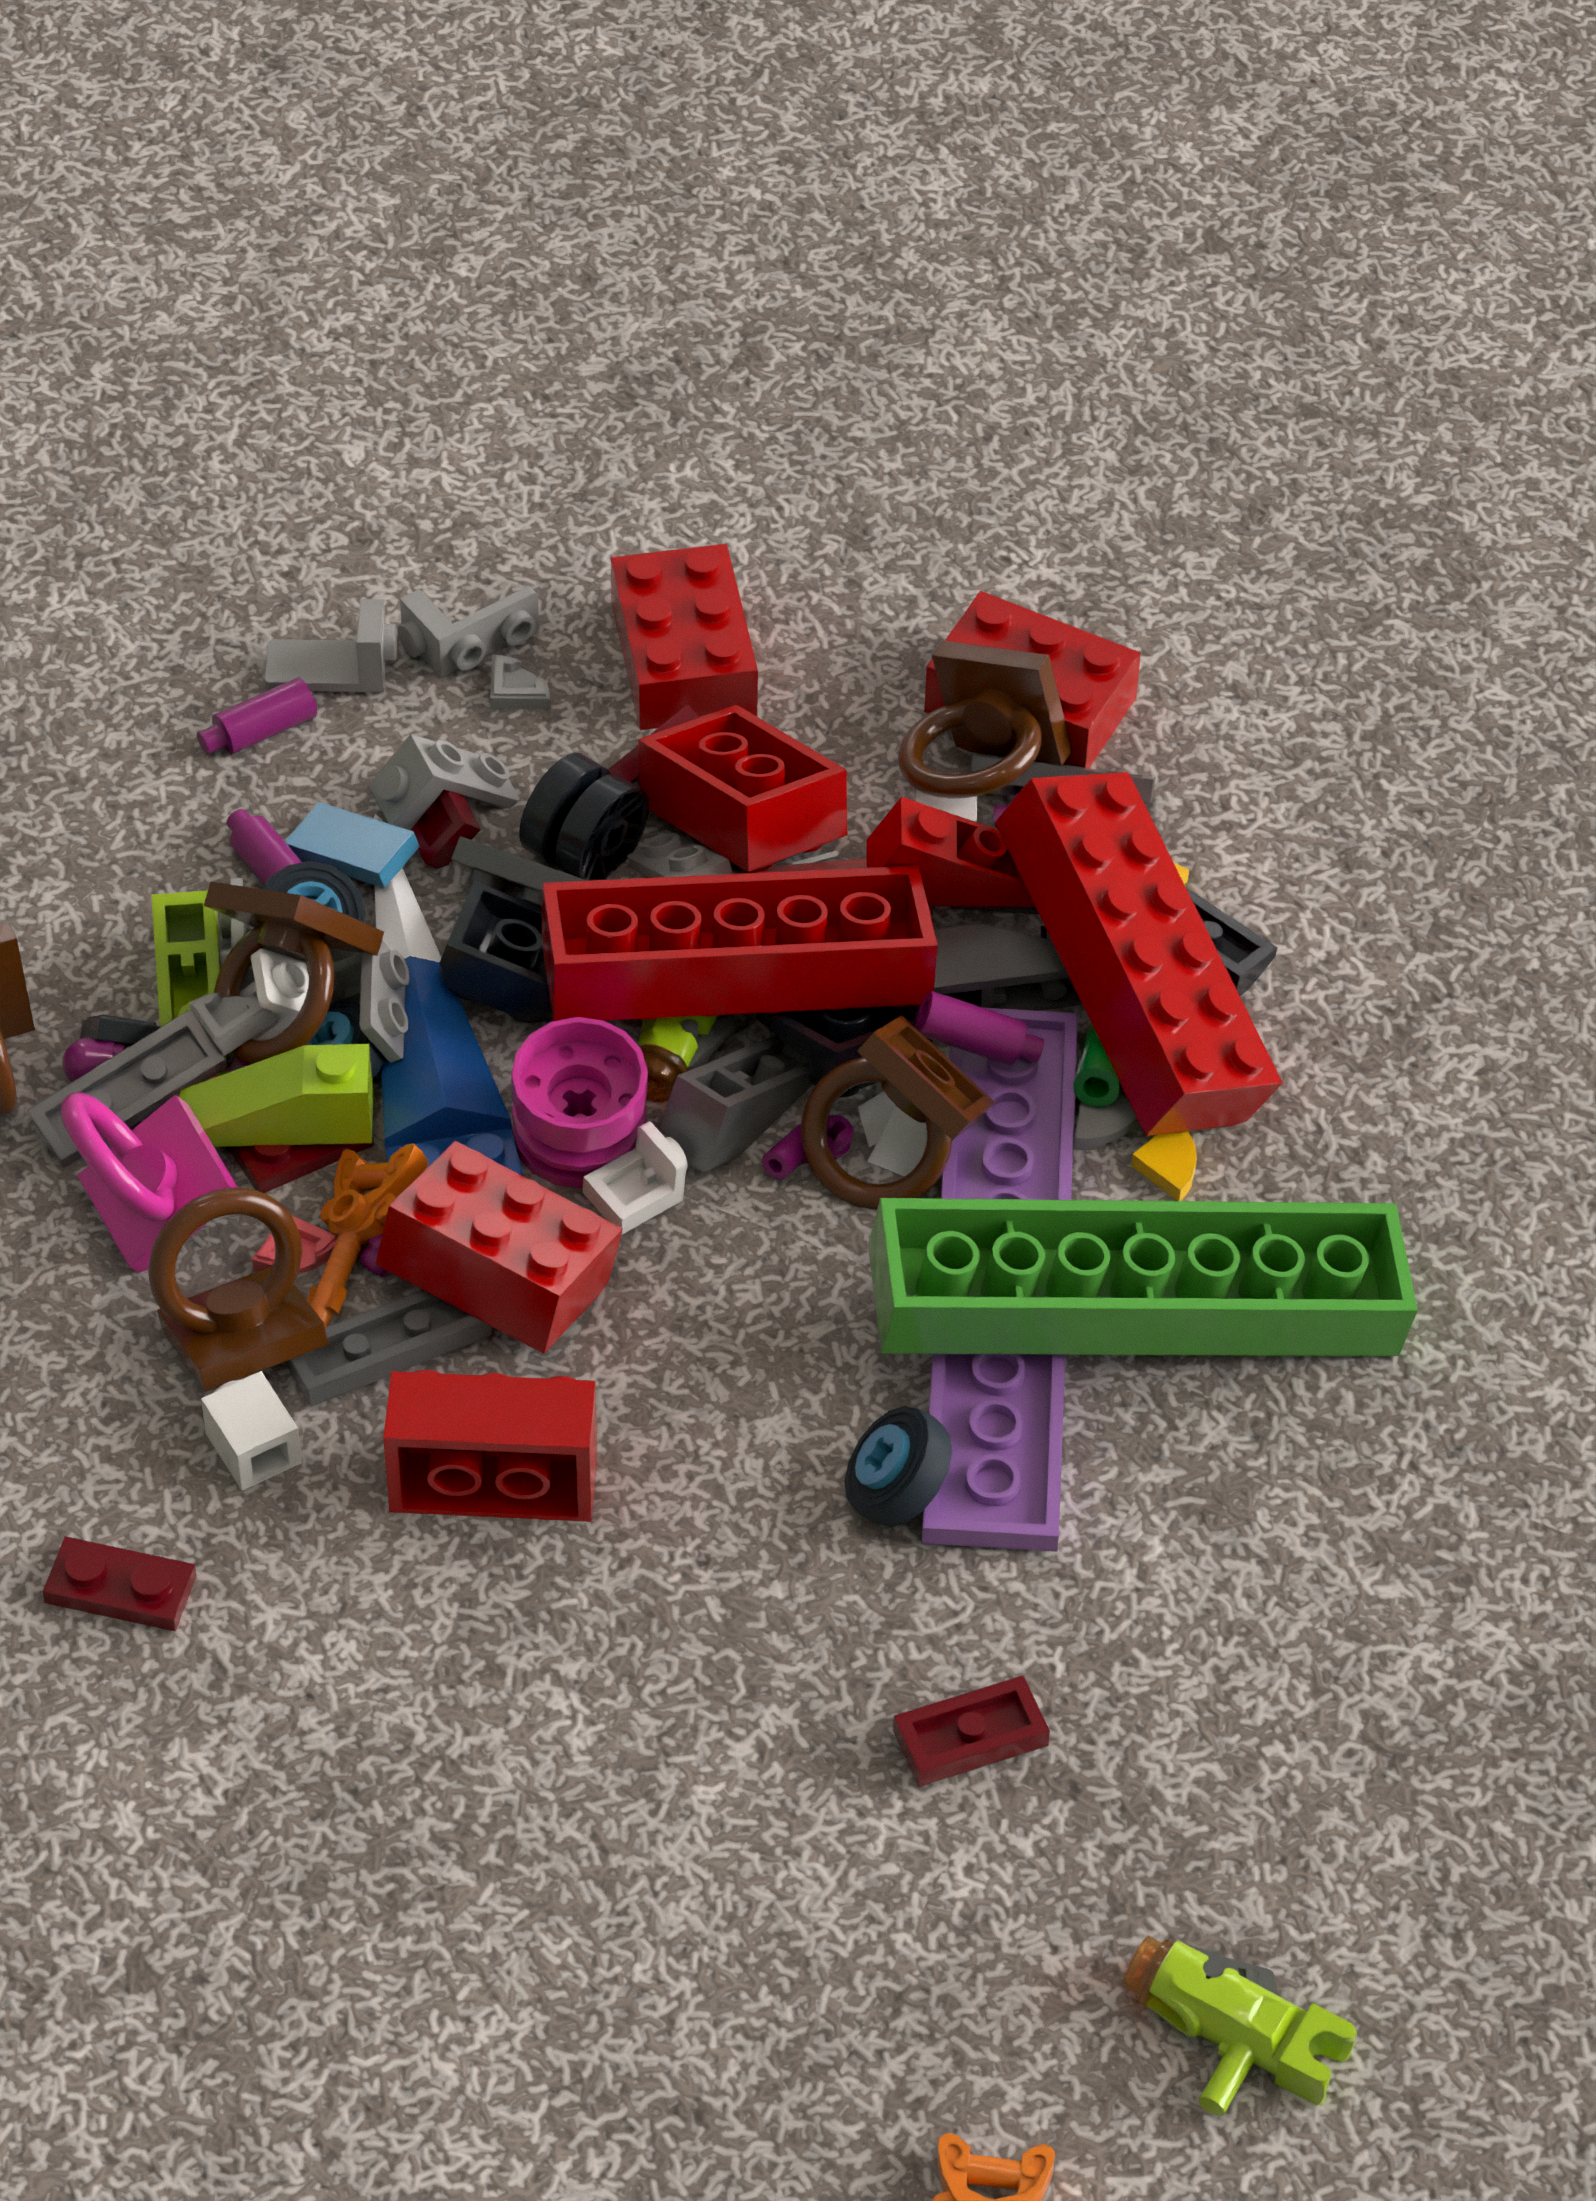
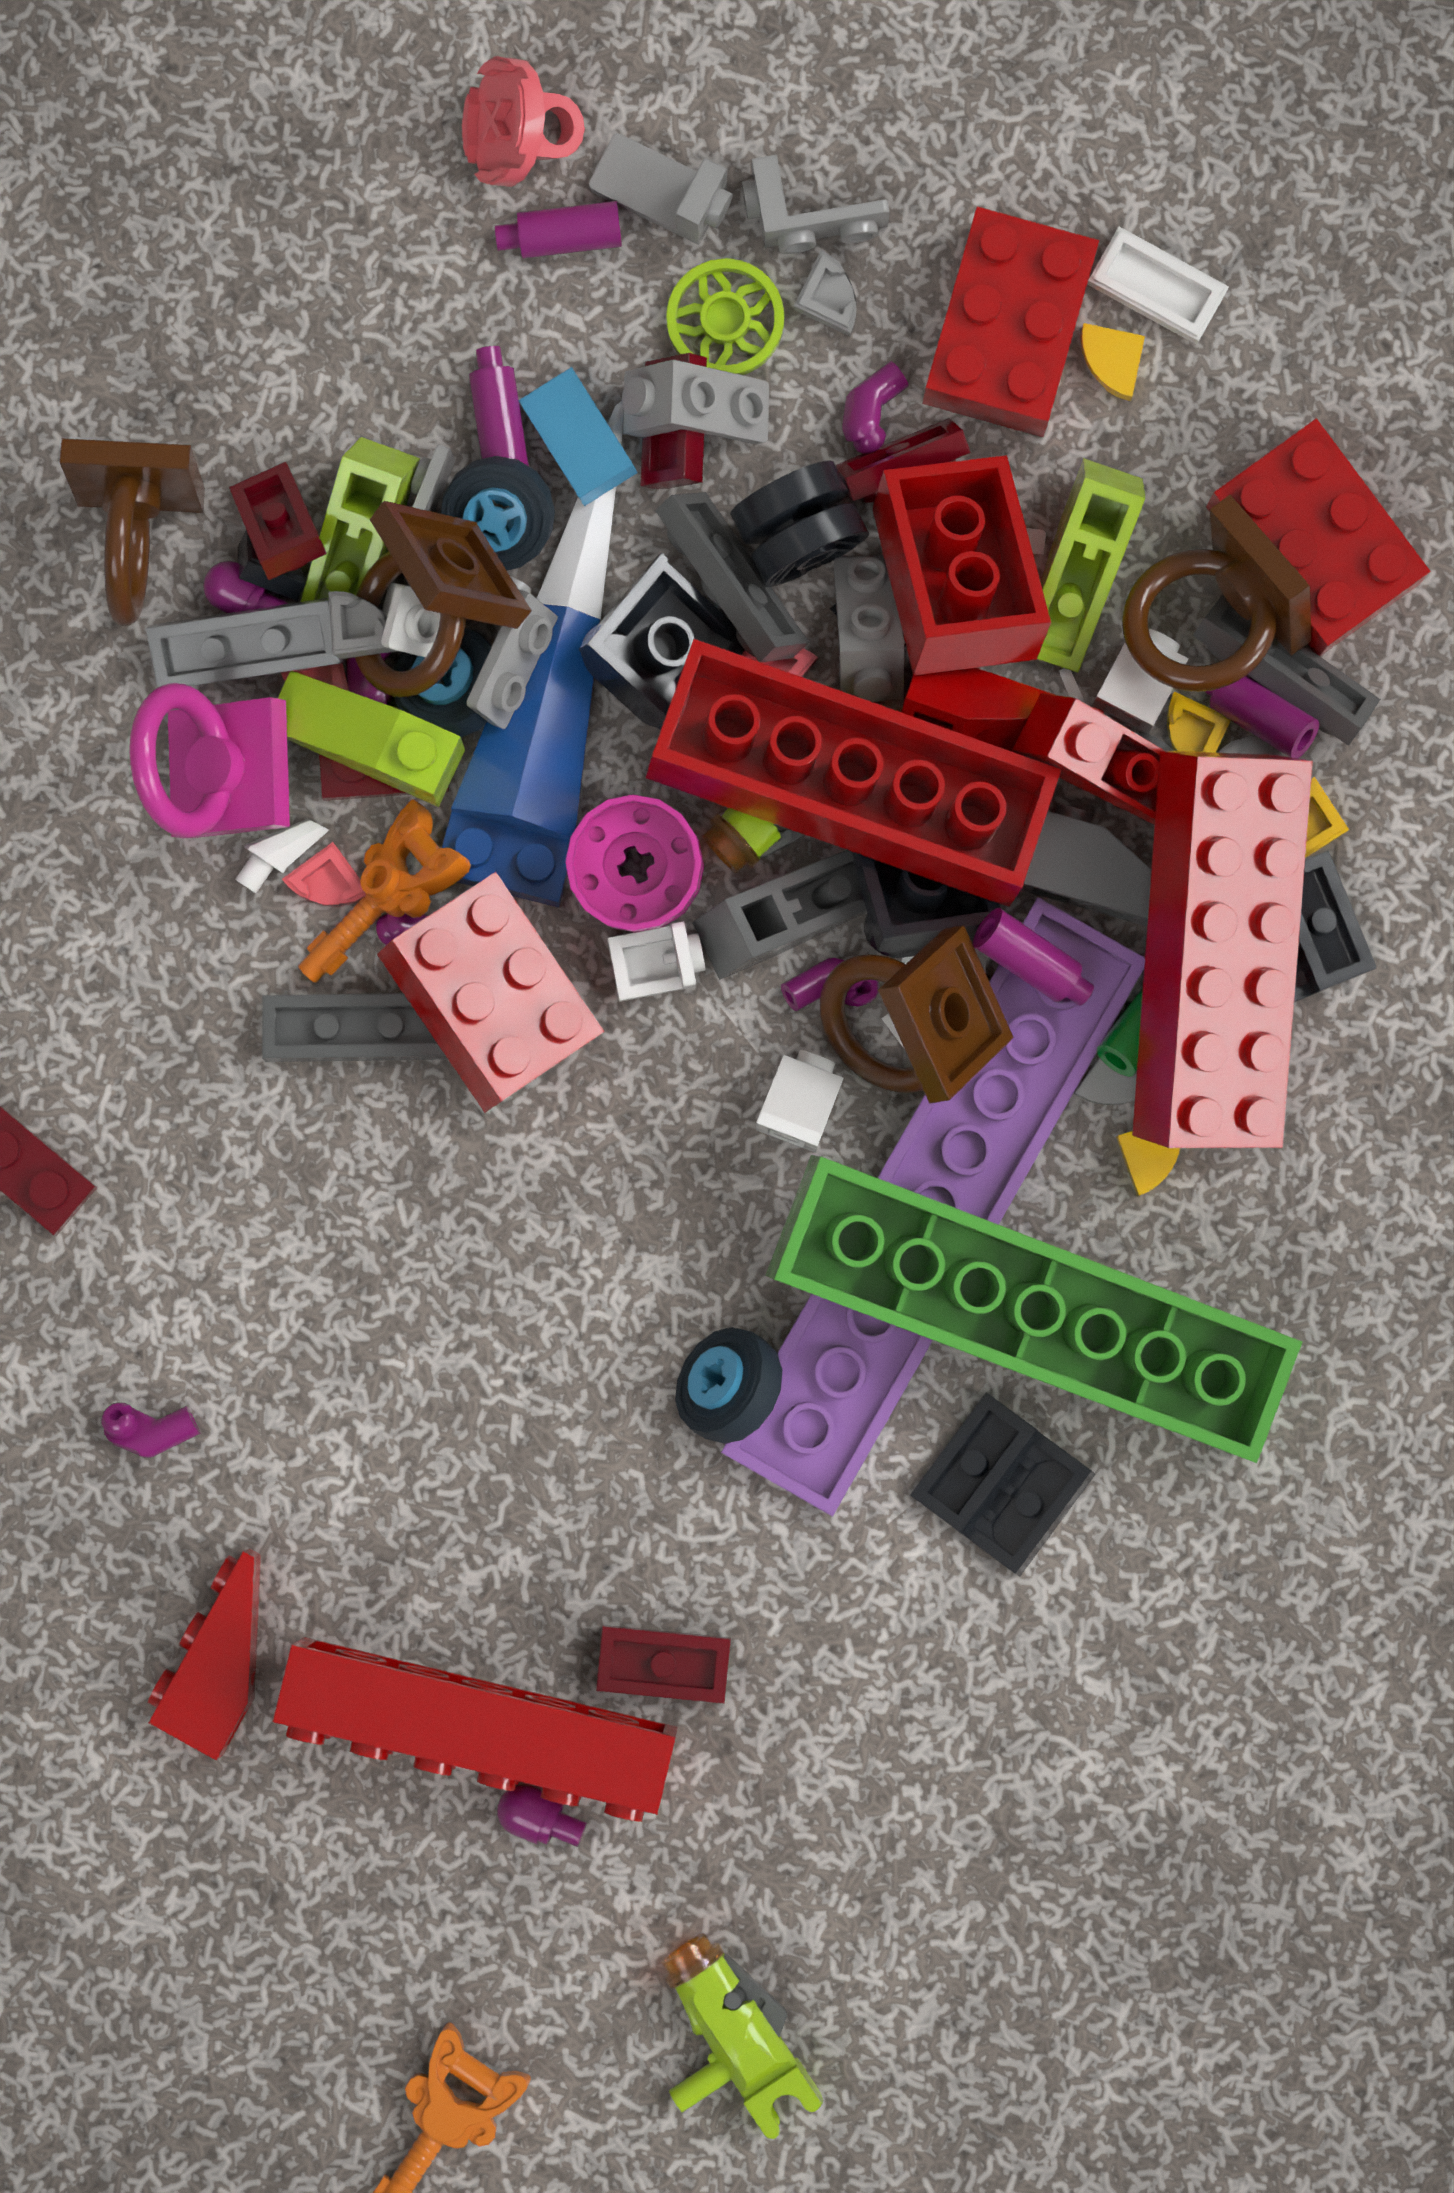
camera: 30 degrees right, 35 degrees up
(113, 987) = (277, 521): none -> dark red plate
(177, 650) = (507, 120): none -> coral tile
(232, 1246) = (278, 851): none -> white bar
(242, 1322) = (231, 951): reddish brown tile -> none
(251, 1430) = (197, 1071): white brick -> none
(352, 1755) = (144, 1434): none -> magenta arm
(436, 721) = (726, 314): none -> lime wheel
(491, 1445) = (384, 1205): red brick -> none
(535, 1917) = (218, 1674): none -> red slope
(594, 735) = (865, 404): none -> magenta arm
(784, 639) = (1112, 358): none -> yellow tile
(793, 583) = (1157, 285): none -> white tile
(821, 1831) = (475, 1726): none -> red brick
(833, 1234) = (800, 1100): none -> white slope
(843, 728) = (1087, 558): none -> lime slope
(924, 1916) = (537, 1819): none -> magenta cylinder
(1199, 1460) = (1002, 1484): none -> black slope

